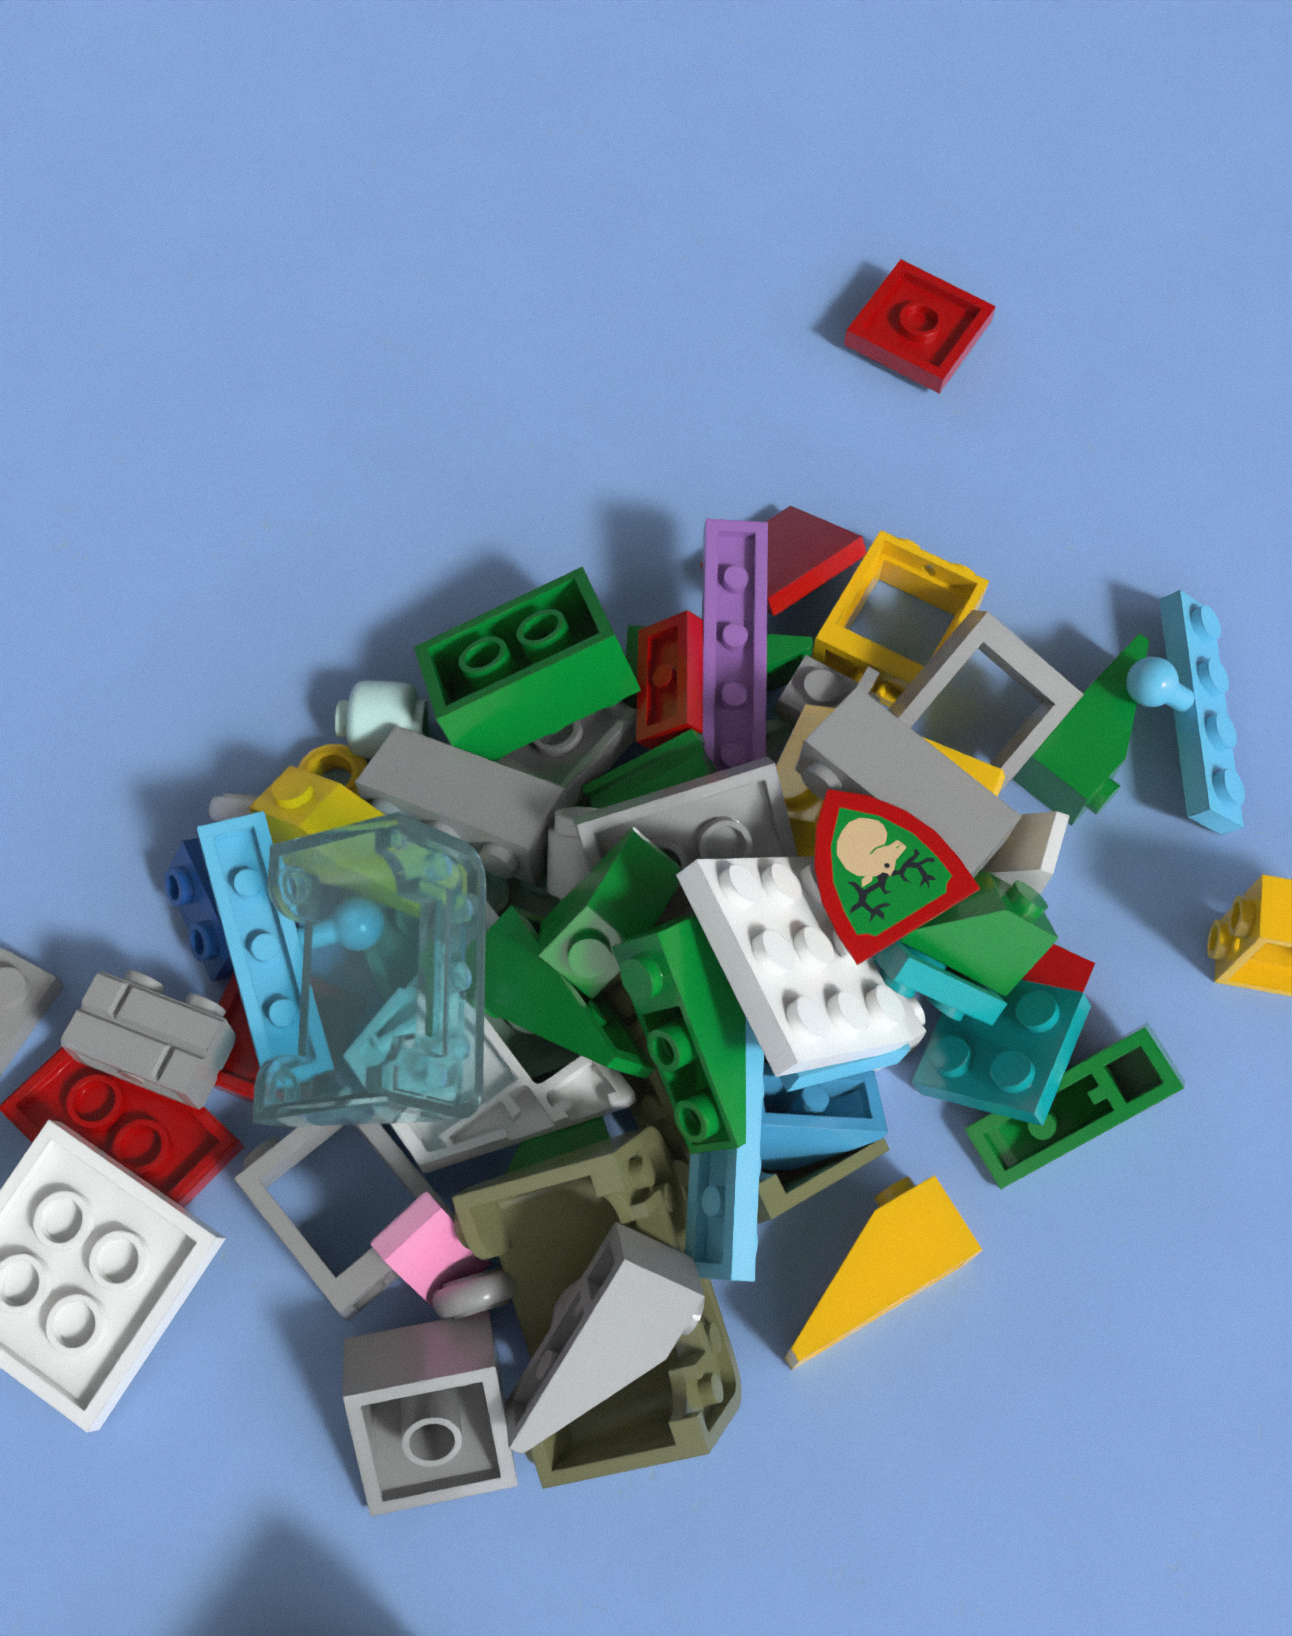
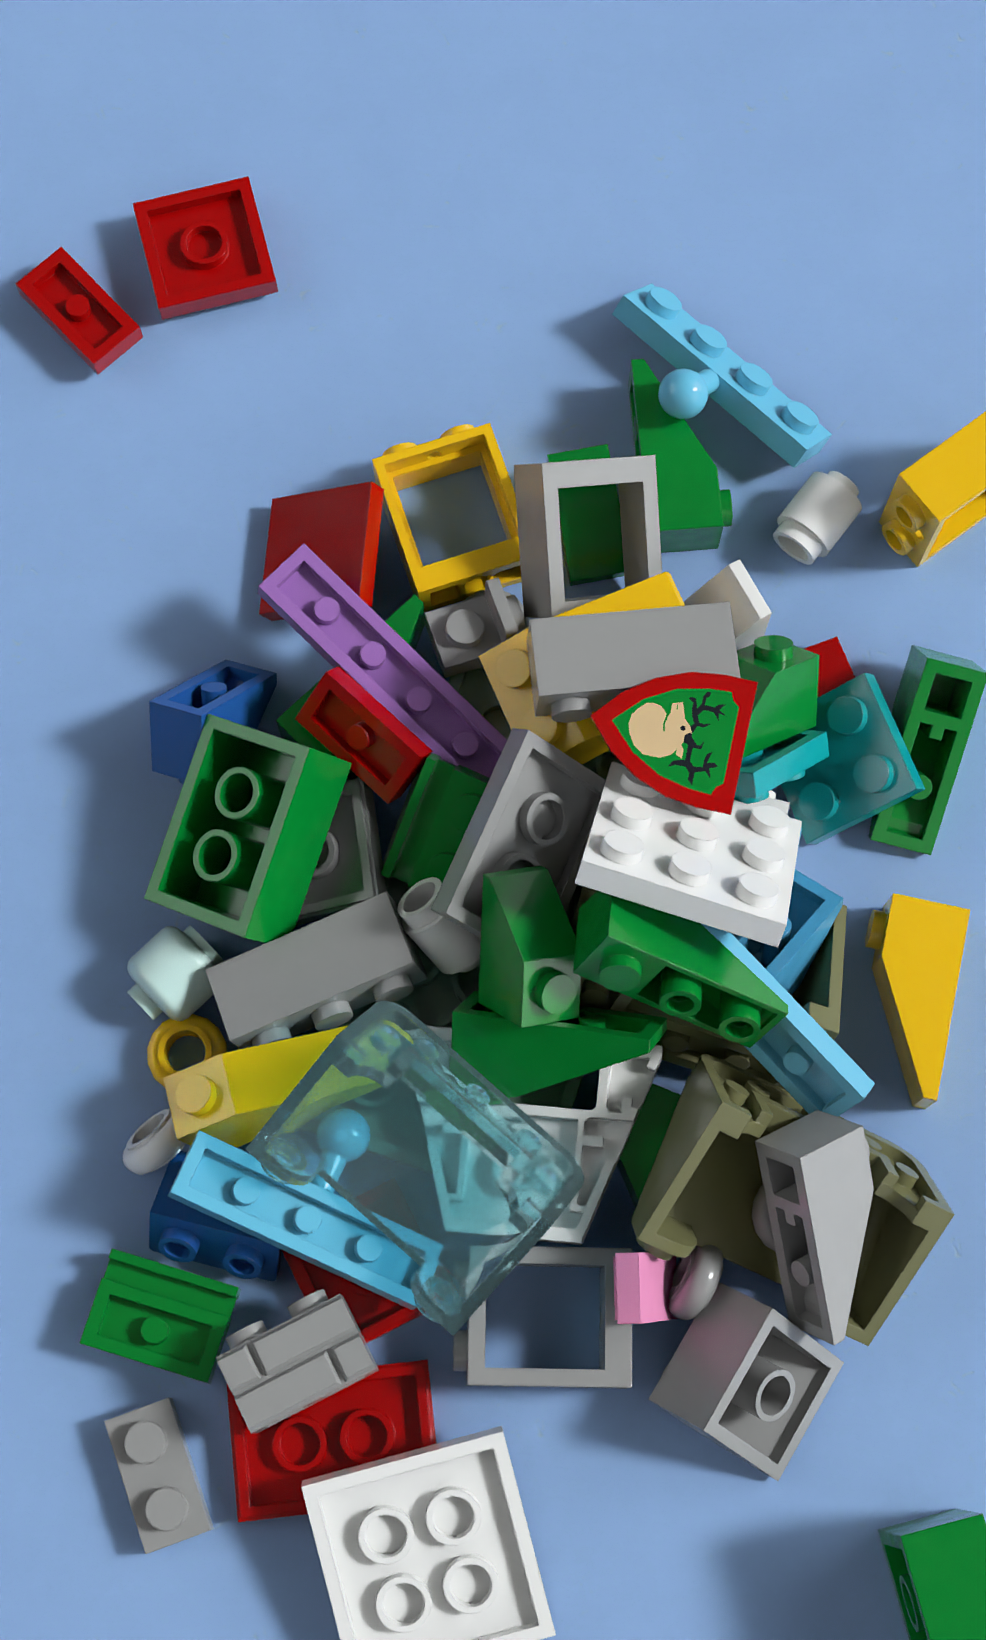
camera: 45 degrees left, 10 degrees up
(115, 917) = (160, 1316): none -> green plate
(621, 588) = (178, 716): none -> blue slope
(795, 292) = (79, 310): none -> red plate
(989, 716) = (590, 524): none -> green slope
(1171, 868) = (817, 516): none -> white brick

